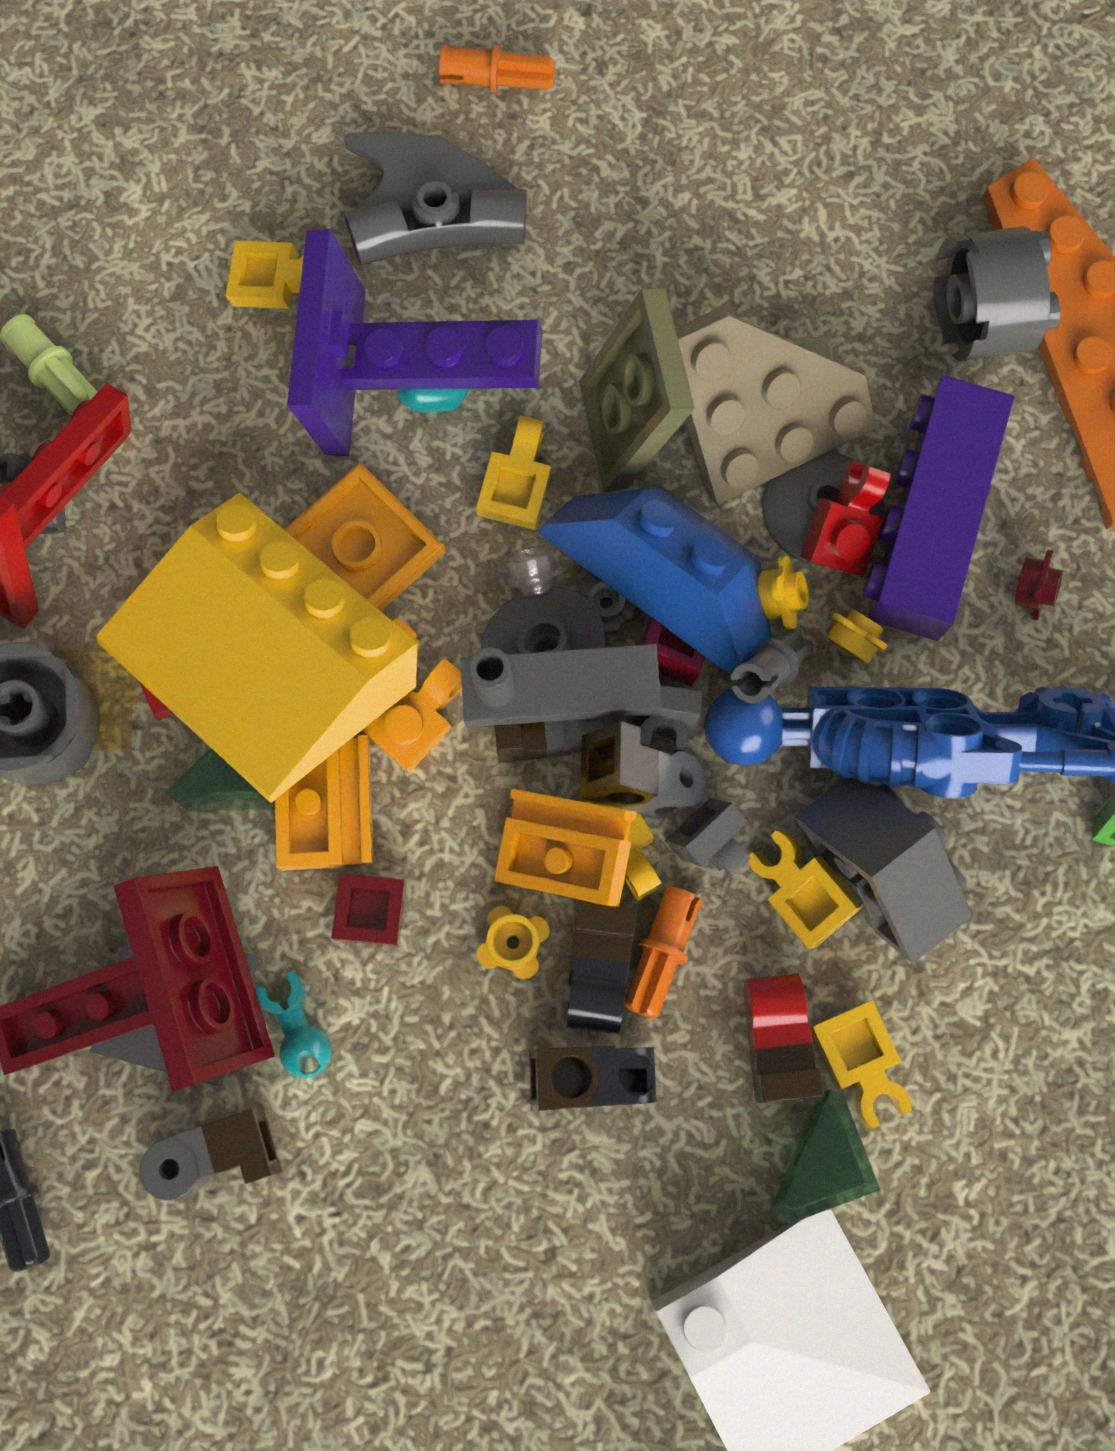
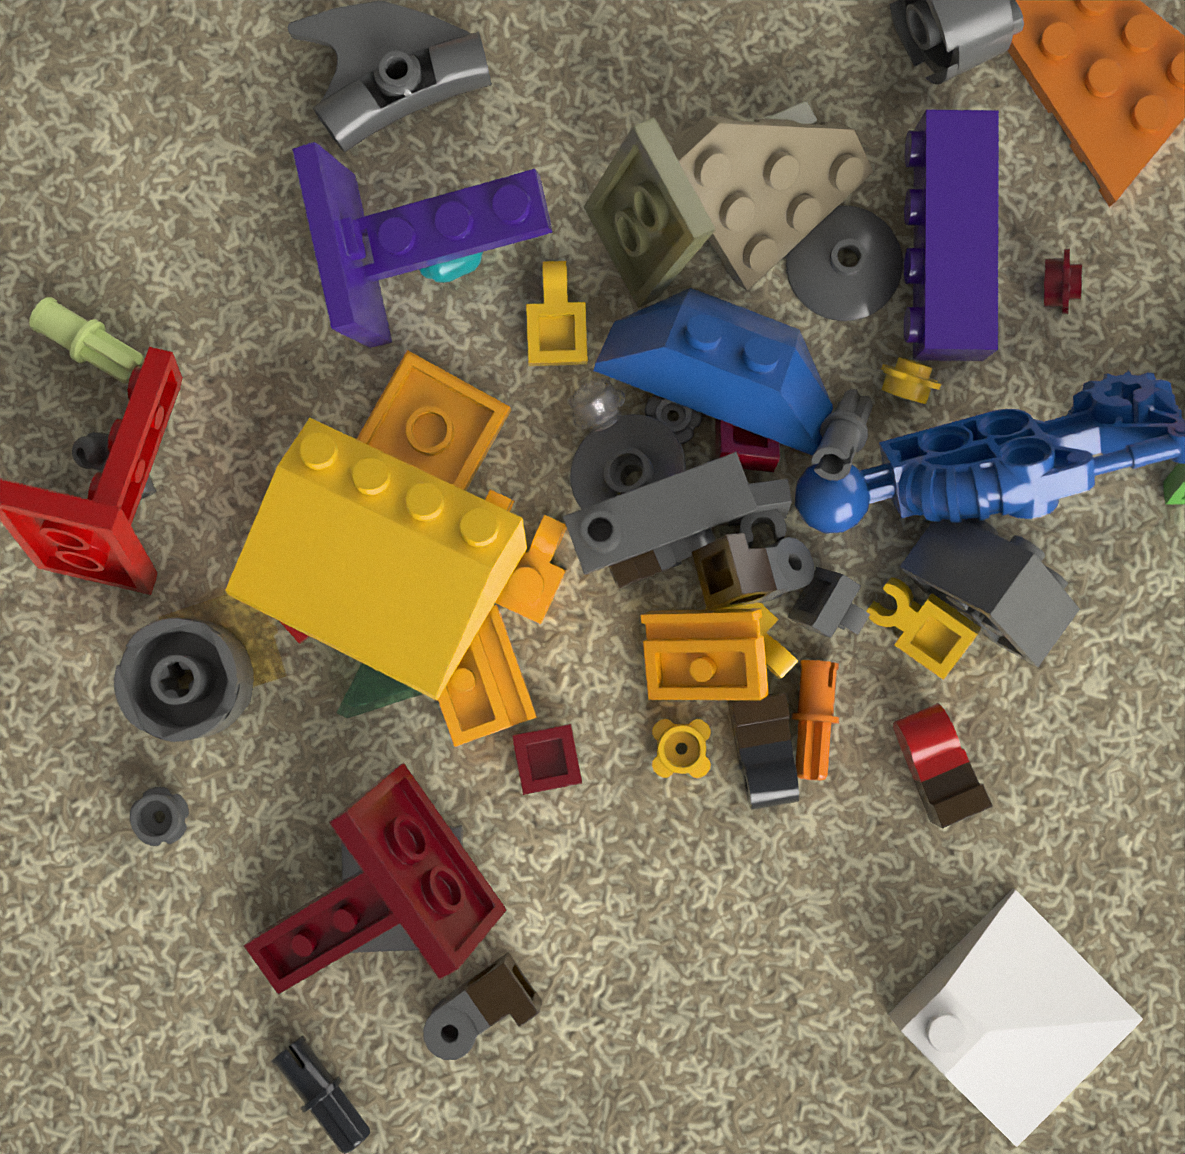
camera: 10 degrees left, 10 degrees up
(264, 274) = (258, 189): yellow plate -> none
(300, 1039) = (522, 886): teal arm -> none
(591, 1077) = (785, 847): leg -> none
(783, 592) = (832, 359): yellow plate -> none
(826, 1164) = (1007, 863): clear green slope -> none
(845, 530) = (875, 282): red plate -> none
(858, 1052) = (1010, 757): yellow plate -> none

